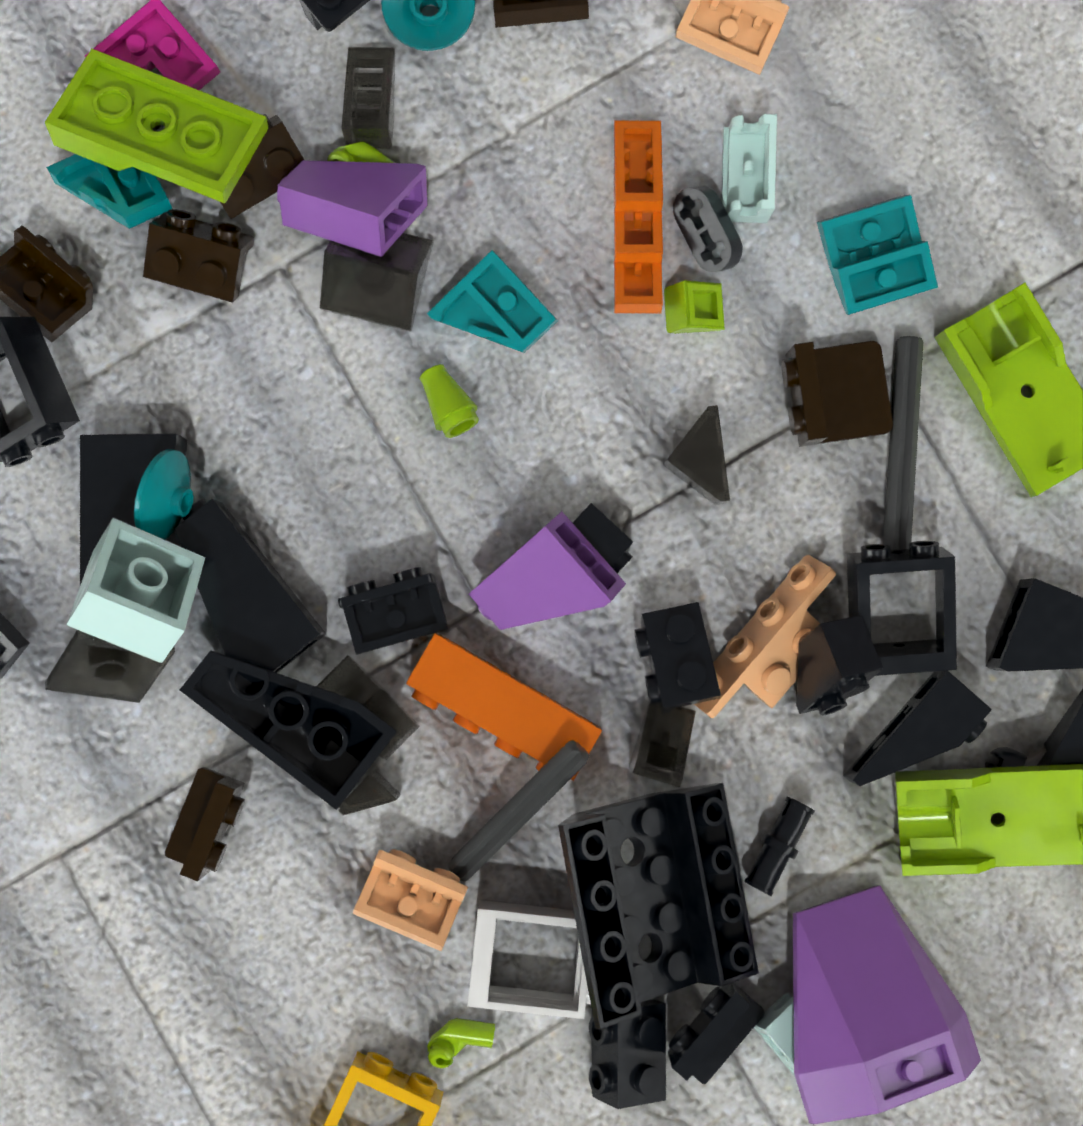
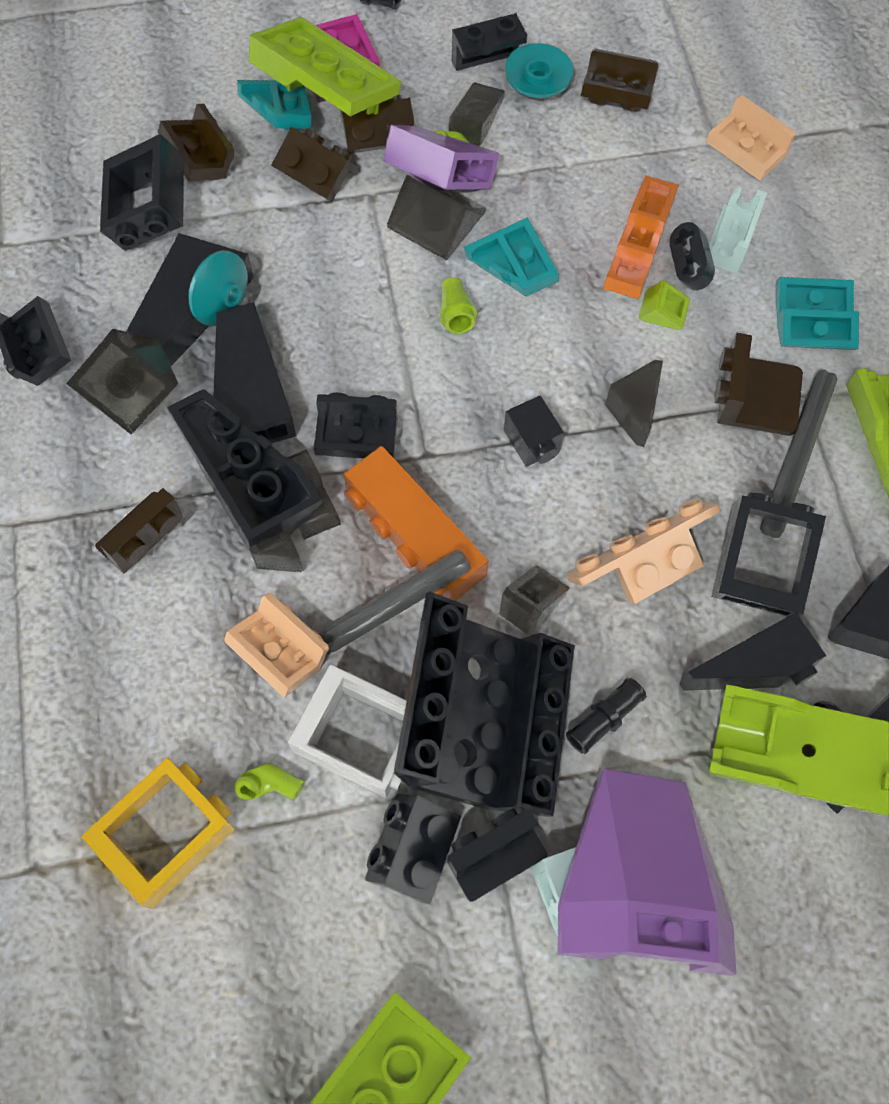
camera: 15 degrees right, 20 degrees down
(137, 591) = (167, 323): light aqua brick -> none
(548, 579) = (483, 431): medium lavender slope -> none
(677, 657) = (571, 529): black bracket -> none
(835, 665) = (699, 575): black slope -> none

